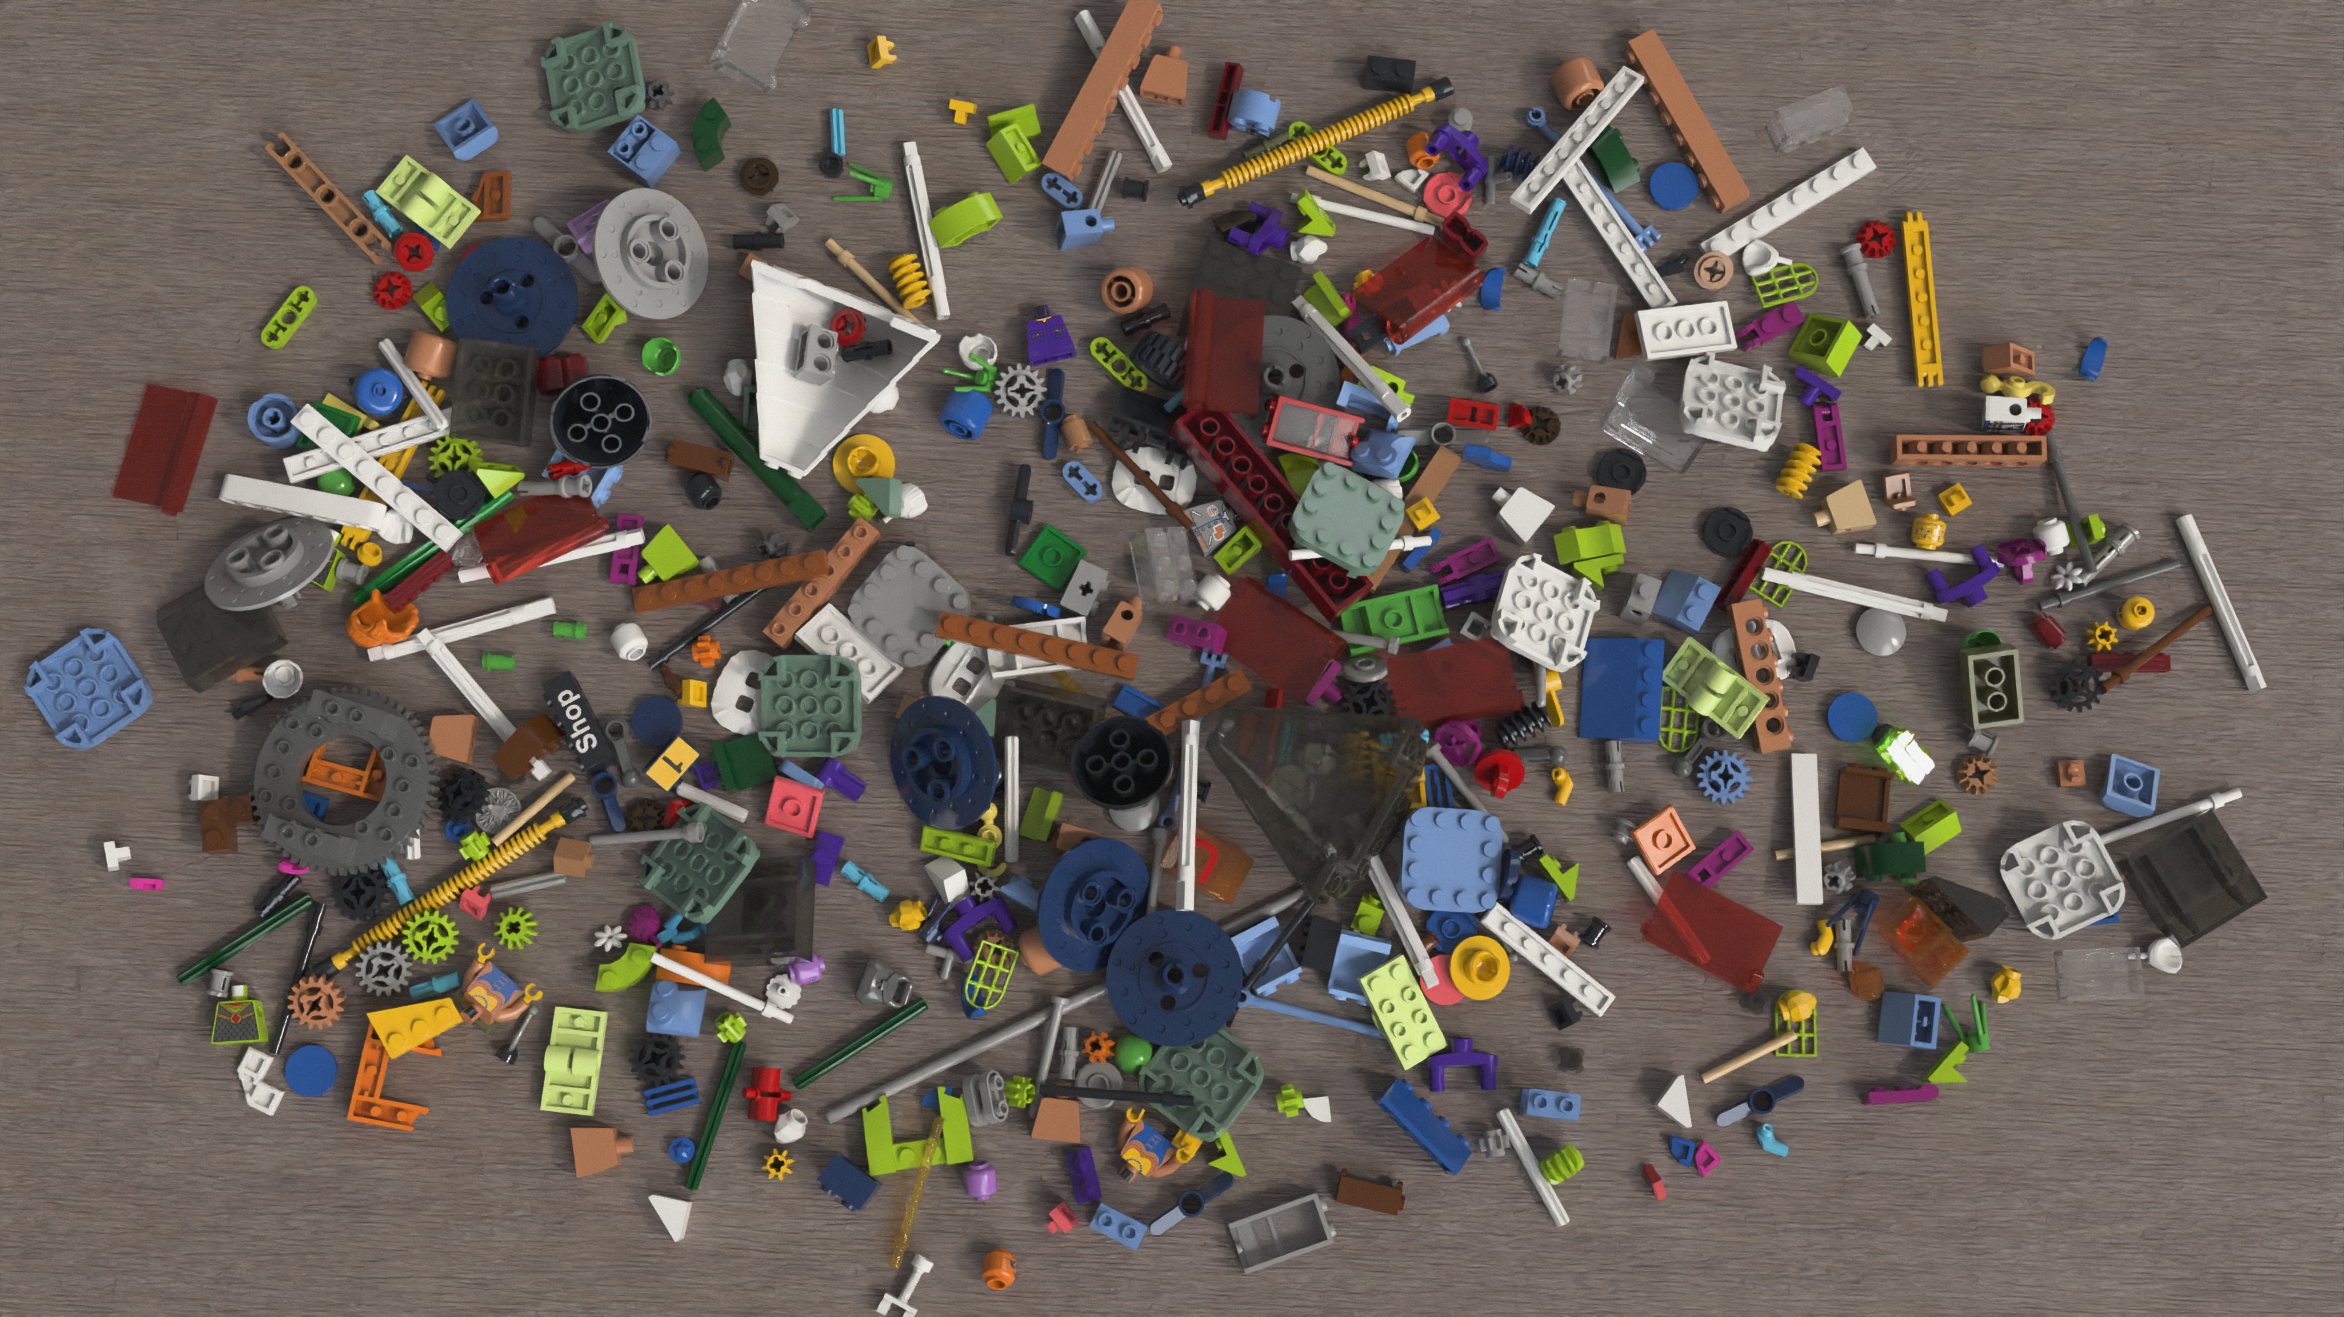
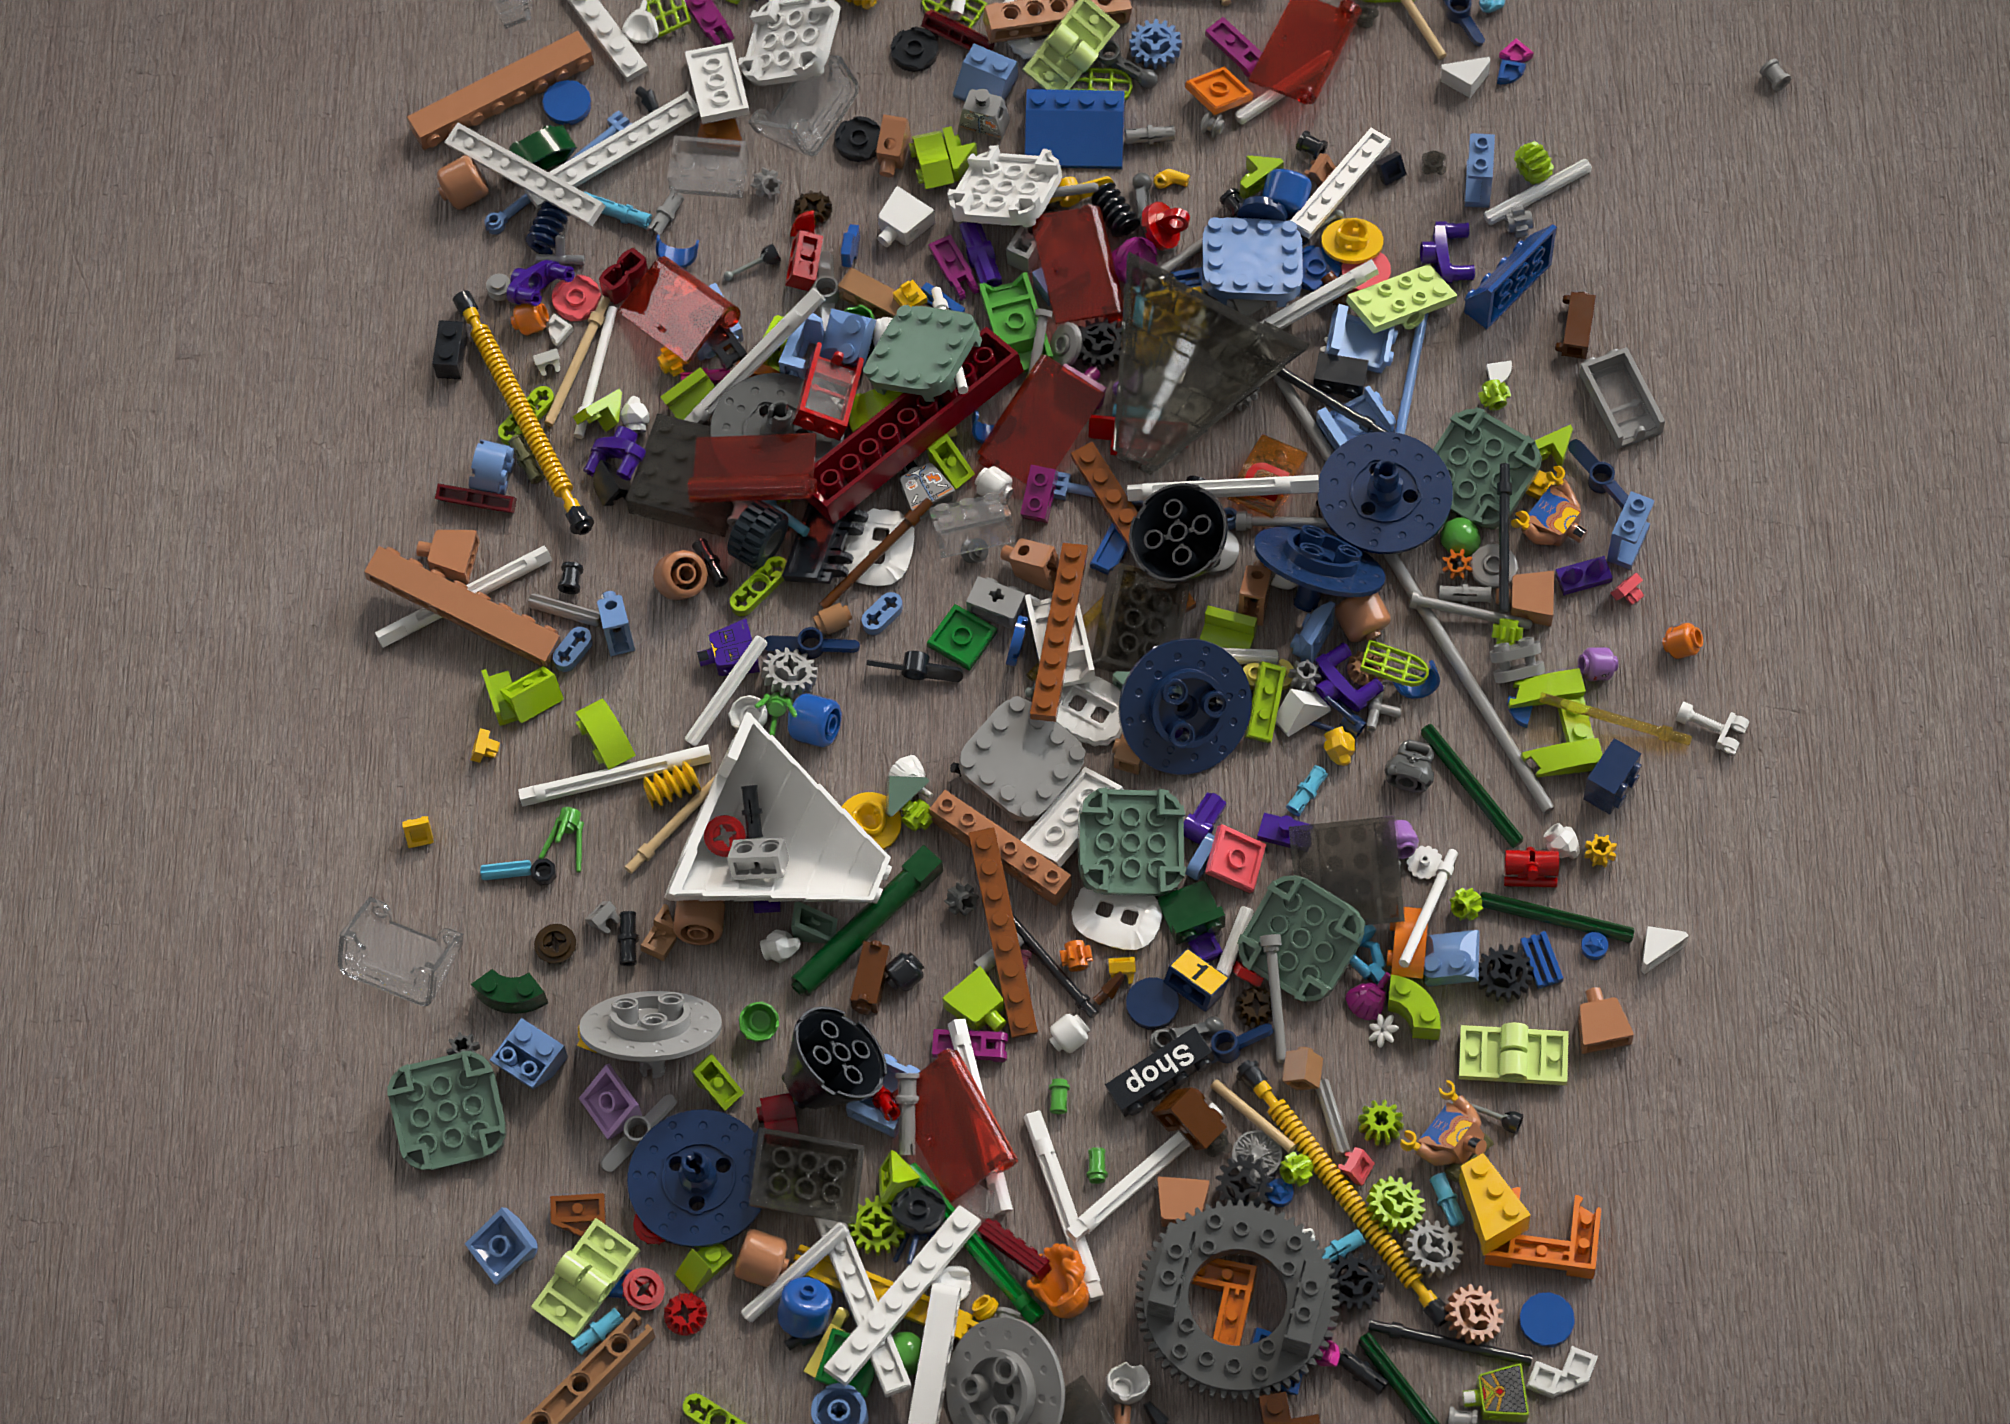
camera: 85 degrees left, 15 degrees down
(1001, 330) = (726, 690): none -> white axle
(1368, 914) = (1309, 333): lime bracket -> none
(1656, 1182) = (1542, 88): red tile -> none
(1718, 279) = (662, 62): medium nougat gear -> none

